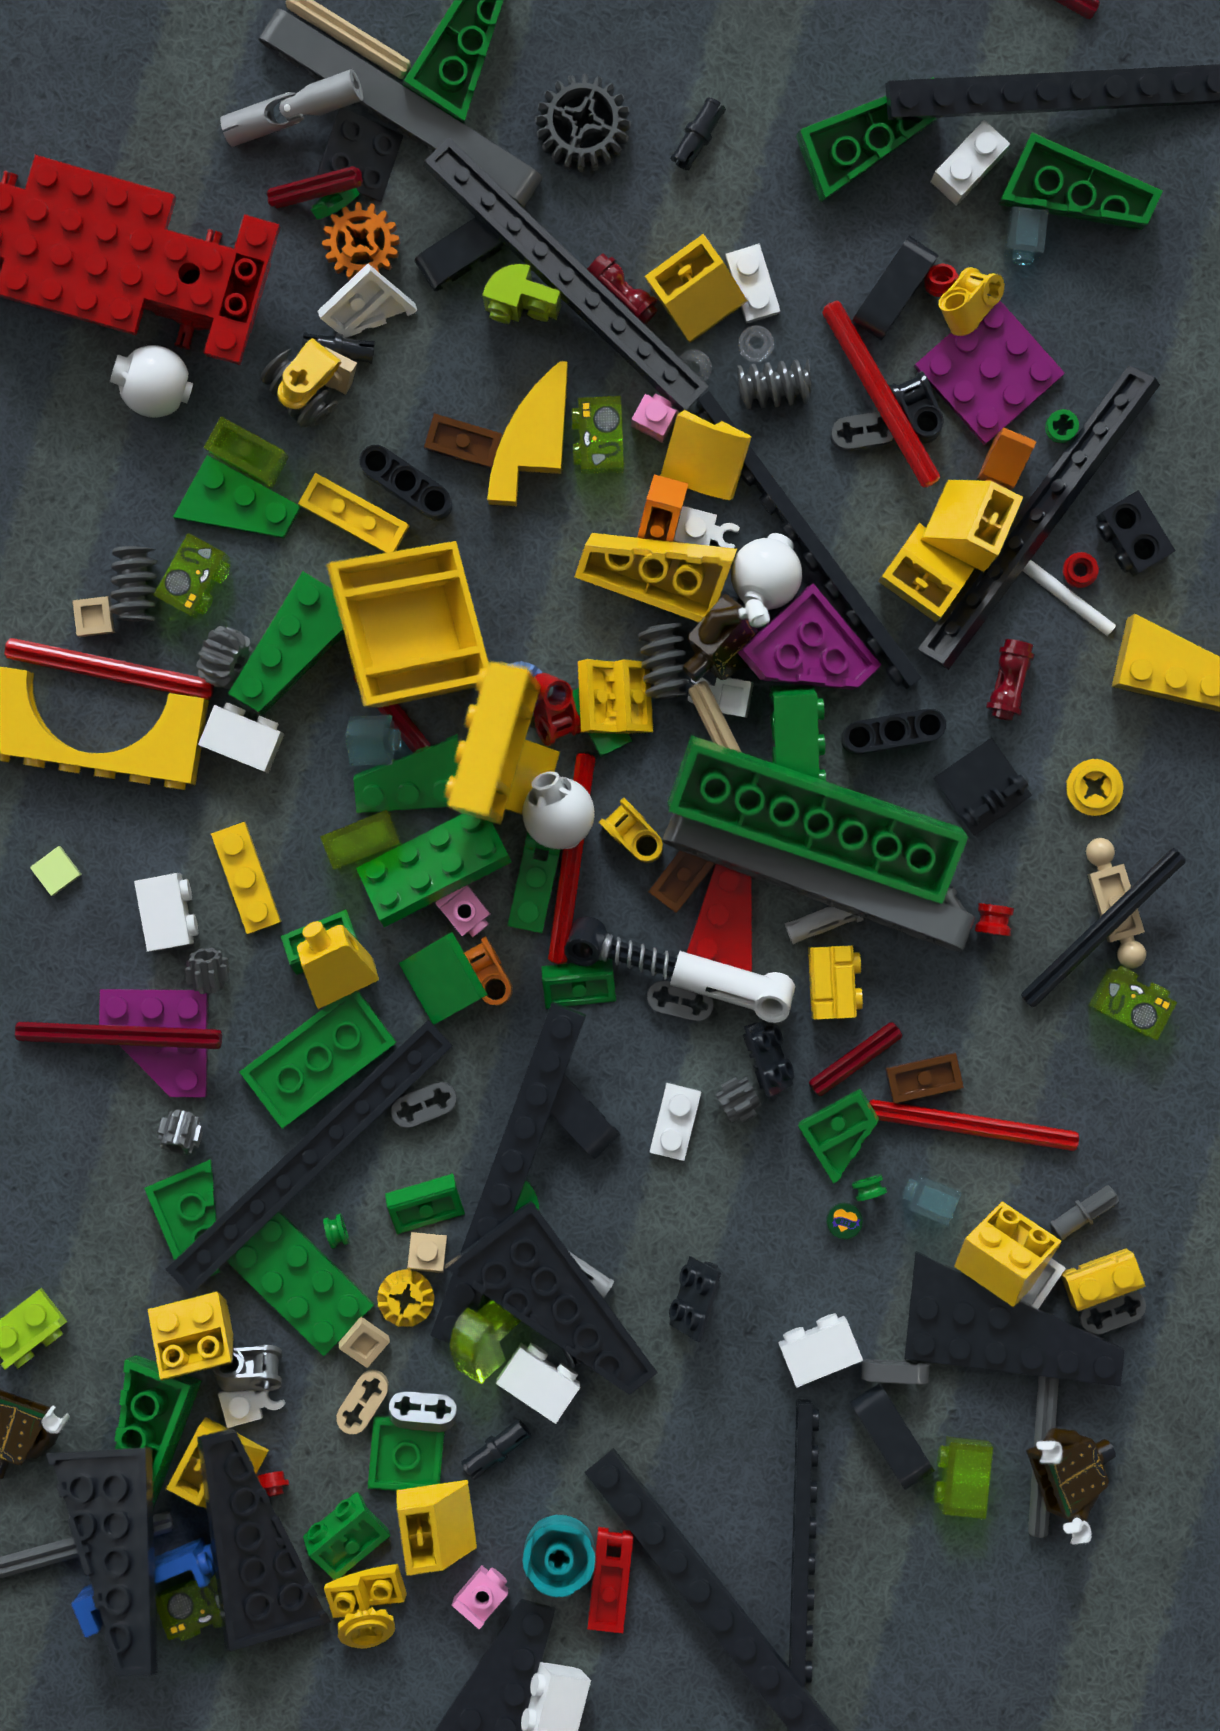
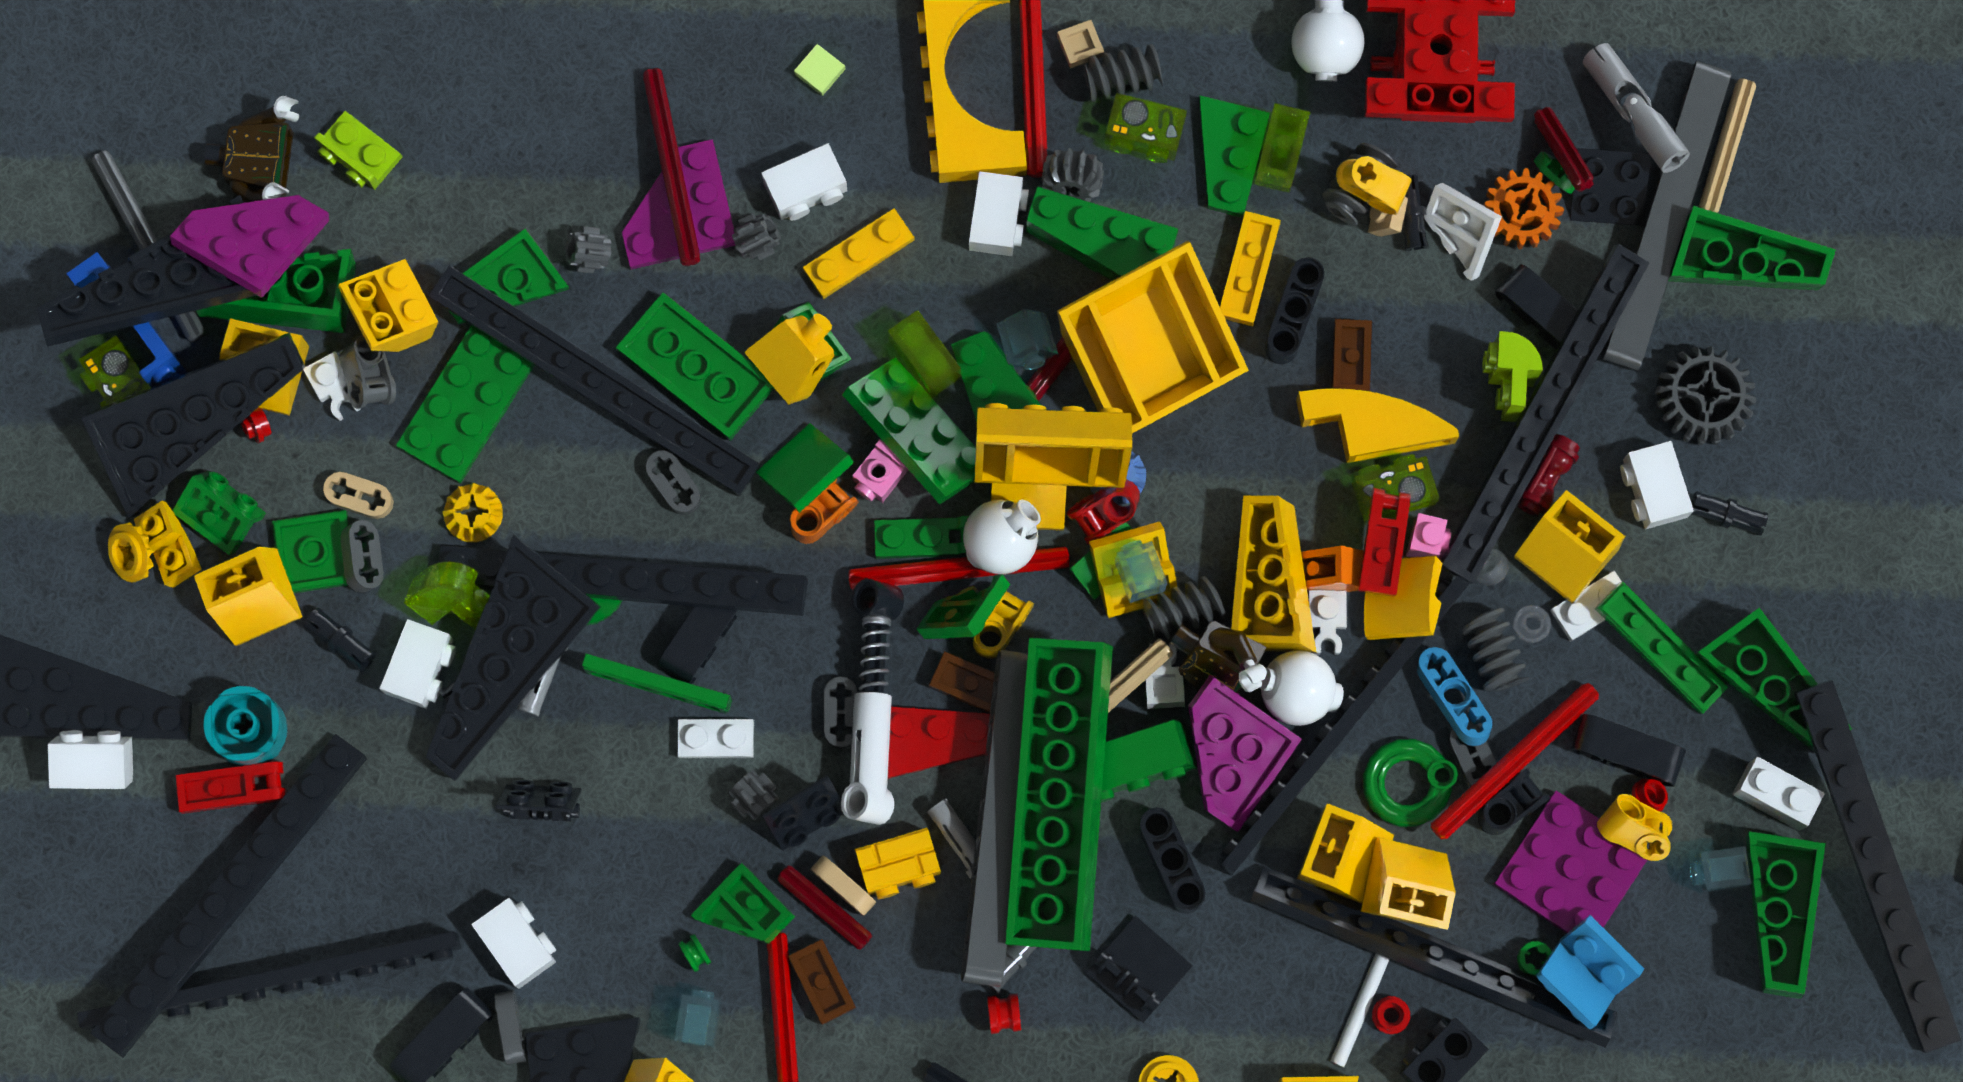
camera: 80 degrees right, 10 degrees down
(95, 1454) = (251, 239): none -> magenta plate
(336, 1231) = (525, 426): green bush -> none
(364, 1342) = (419, 481): tan plate -> none
(424, 1204) = (572, 508): green slope -> none
(427, 1252) = (524, 521): tan plate -> none
(483, 1580) = (172, 653): bright pink brick -> none
(578, 984) = (832, 607): green slope -> none
(612, 1164) = (657, 684): none -> green tile
(619, 865) = (963, 613): none -> green wing
(622, 691) = (1140, 570): none -> clear light blue brick
(653, 458) = (1384, 543): none -> red plate
(657, 192) = (1657, 485): none -> white brick
(808, 231) = (1661, 647): none -> green tile
(830, 417) = (1477, 712): none -> dark azure beam
(841, 1037) = (843, 885): none -> tan beam
(844, 1220) = (654, 936): dark green tile -> none
(904, 497) = (1430, 760): none -> green piece
(1006, 458) = (1482, 904): orange slope -> none
(1013, 665) = (1274, 968): dark red piece -> none
(1088, 381) = (1588, 971): none -> dark azure bracket

